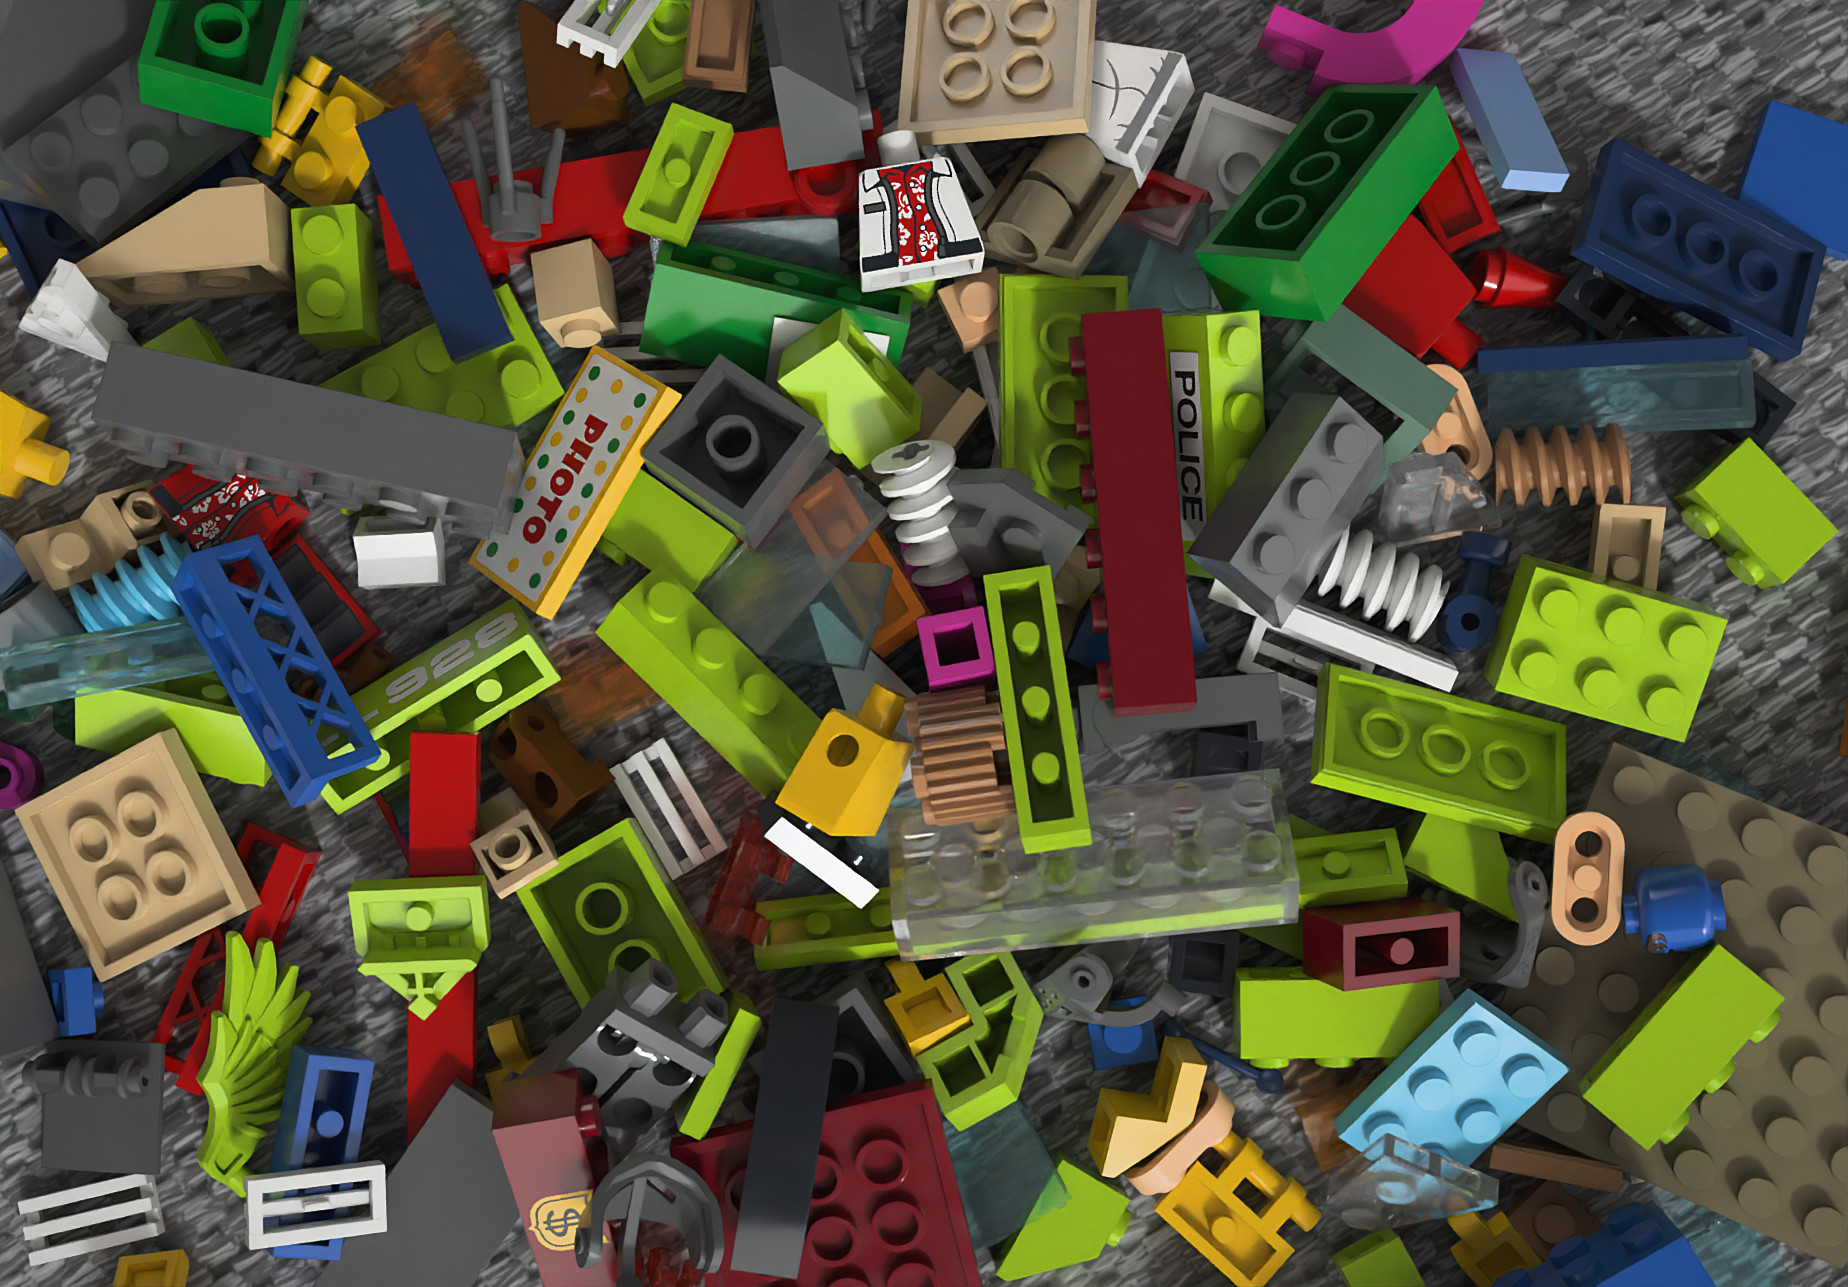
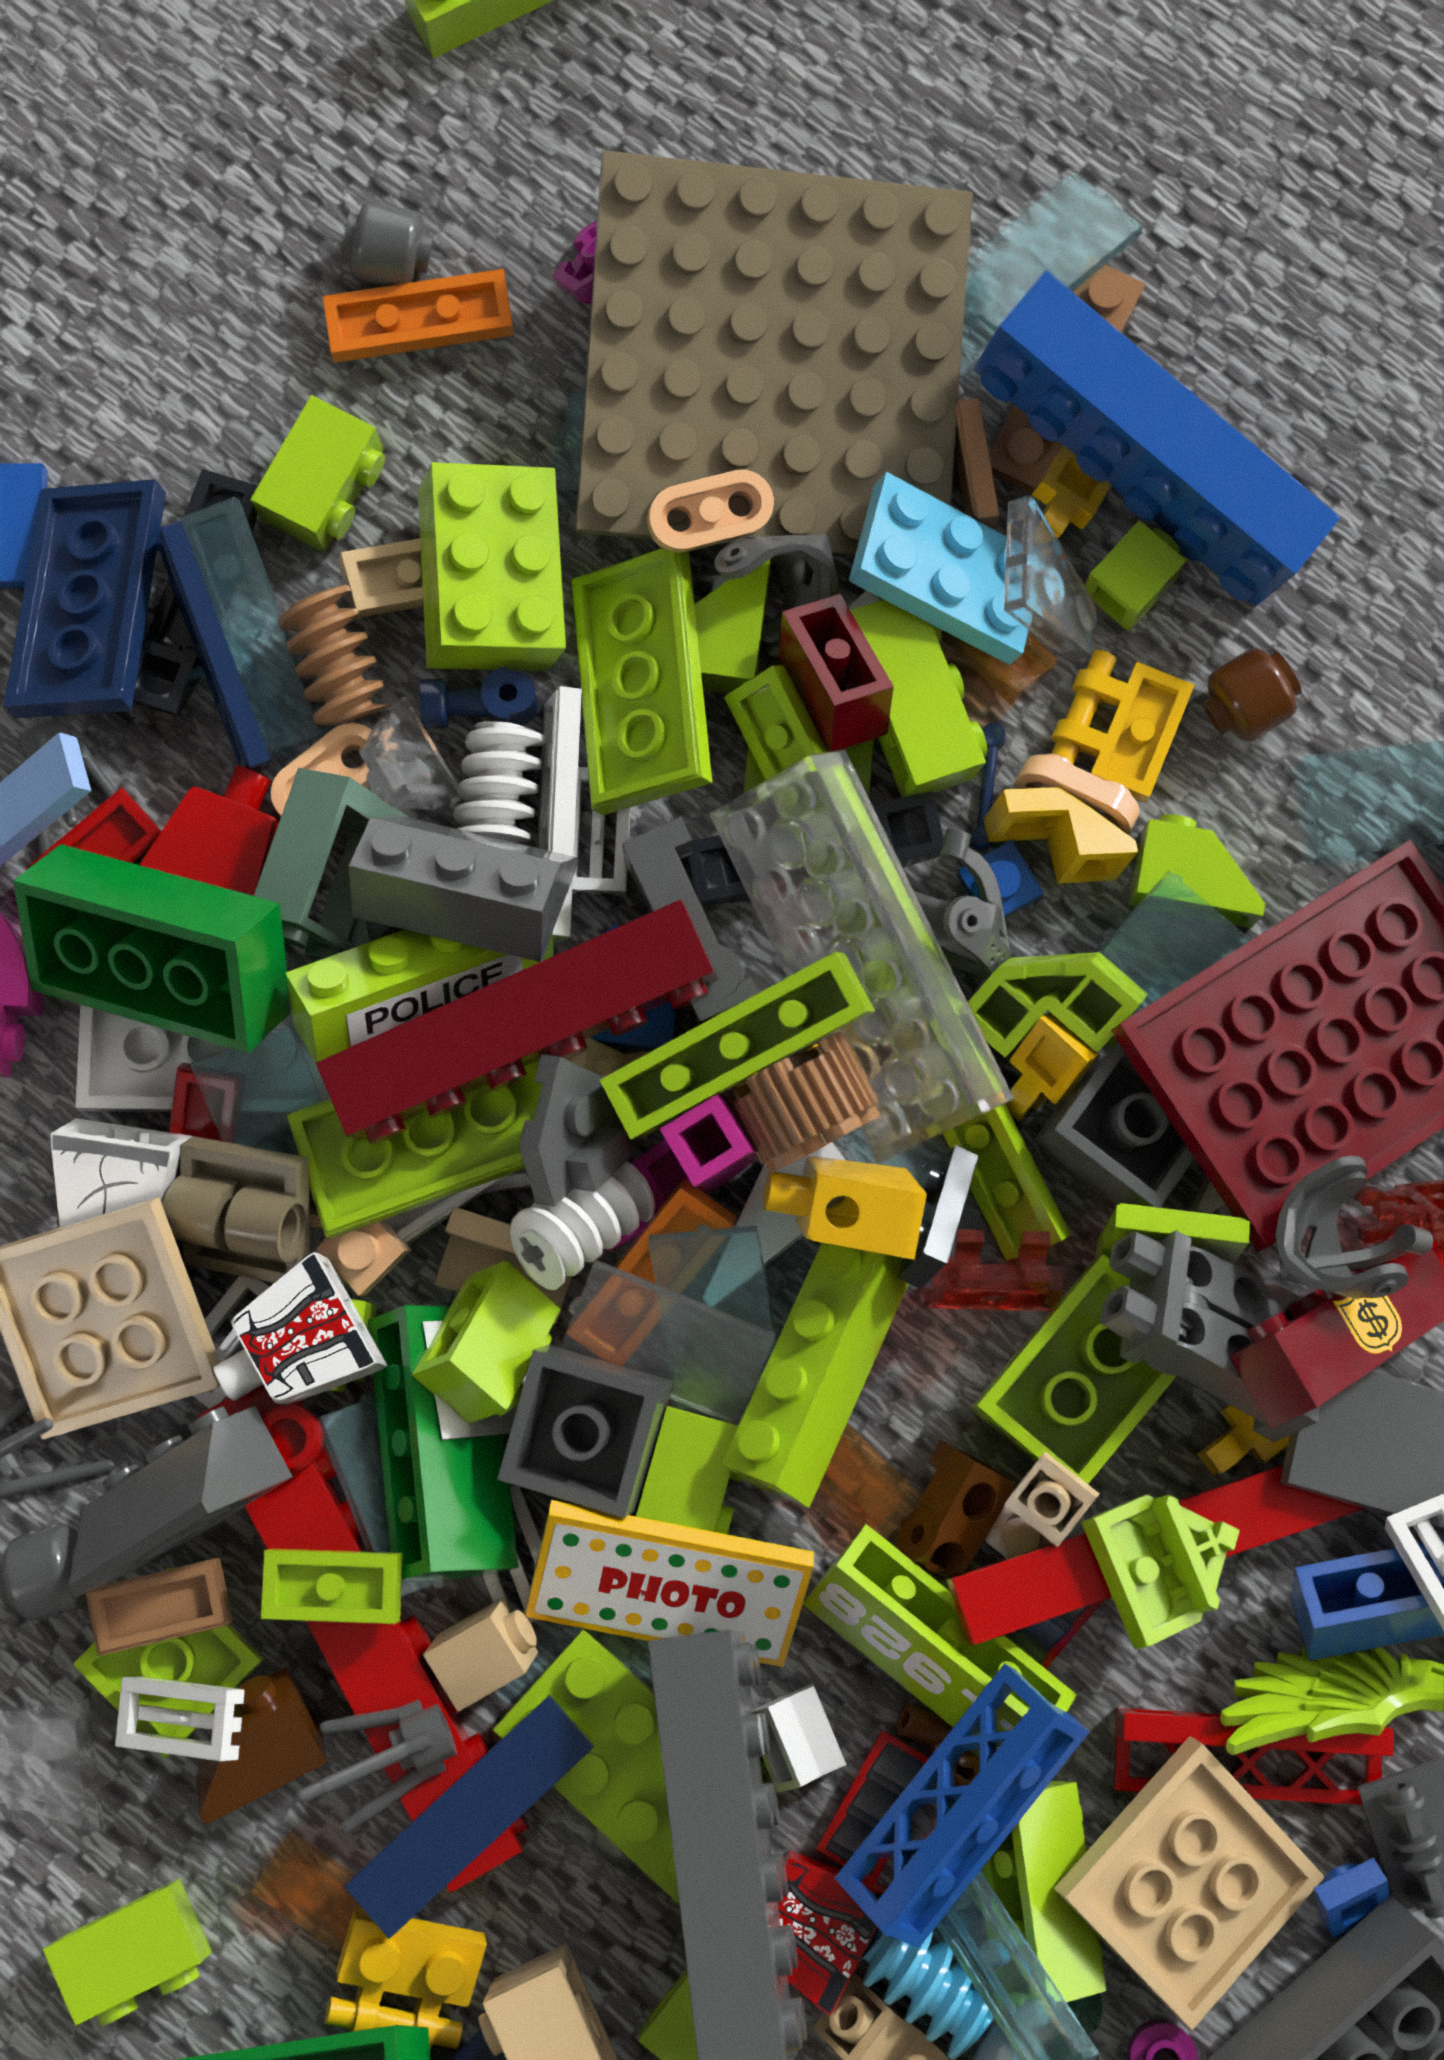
camera: 110 degrees left, 5 degrees down
(335, 276) = (545, 1909): lime brick -> none
(641, 762) = (984, 1337): white tile -> none
(785, 1138) = (1215, 1141): black slope -> none
(1513, 281) = (168, 759): red cone -> none
(1674, 909) = (712, 426): blue head -> none
(1681, 1045) = (830, 383): lime brick -> none

